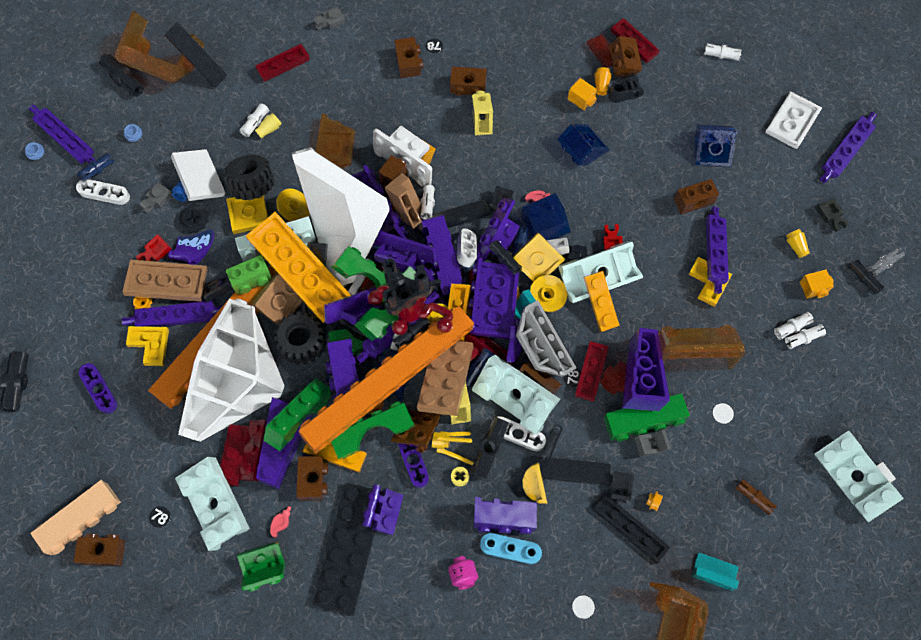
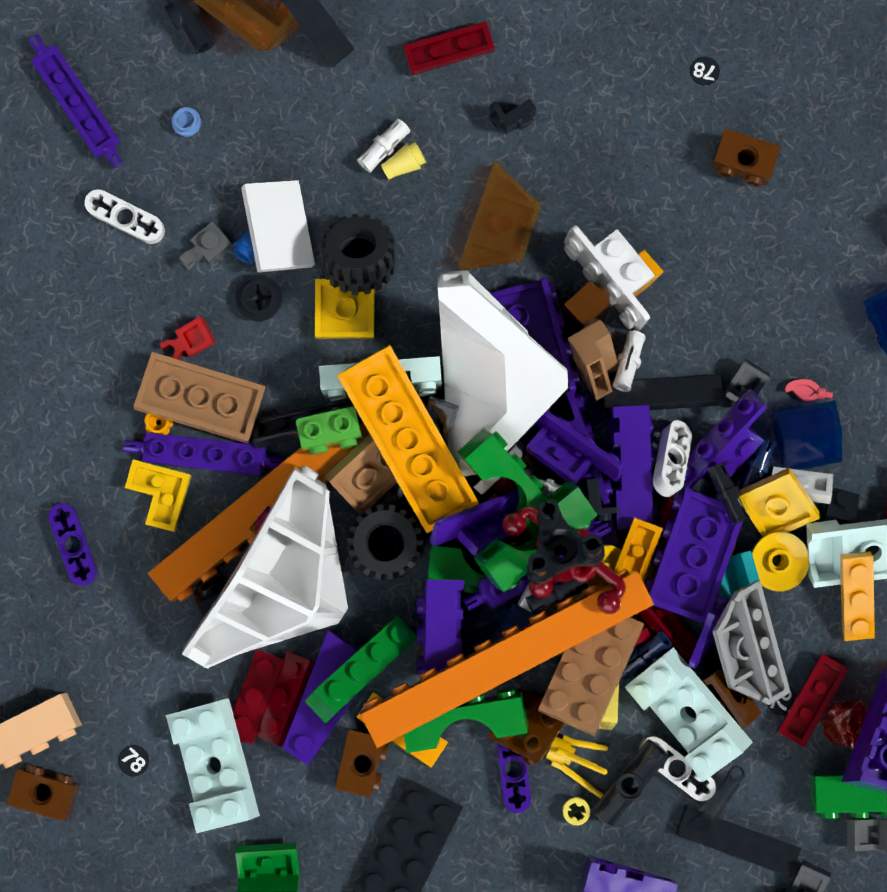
camera: 20 degrees right, 15 degrees up
(34, 151) = (27, 118): medium blue plate -> none
(95, 167) = (119, 174): dark blue pin -> none
(192, 248) = (248, 347): dark purple arm -> none
(280, 522) = (304, 812): coral piece -> none
(295, 200) = (426, 317): yellow dish -> none
(329, 89) = (517, 118): none -> black bracket
(387, 511) = (459, 839): dark purple plate -> none
(408, 66) = (654, 71): reddish brown brick -> none
(482, 105) = (754, 222): light yellow torso -> none
(533, 484) = (680, 851): yellow plate -> none

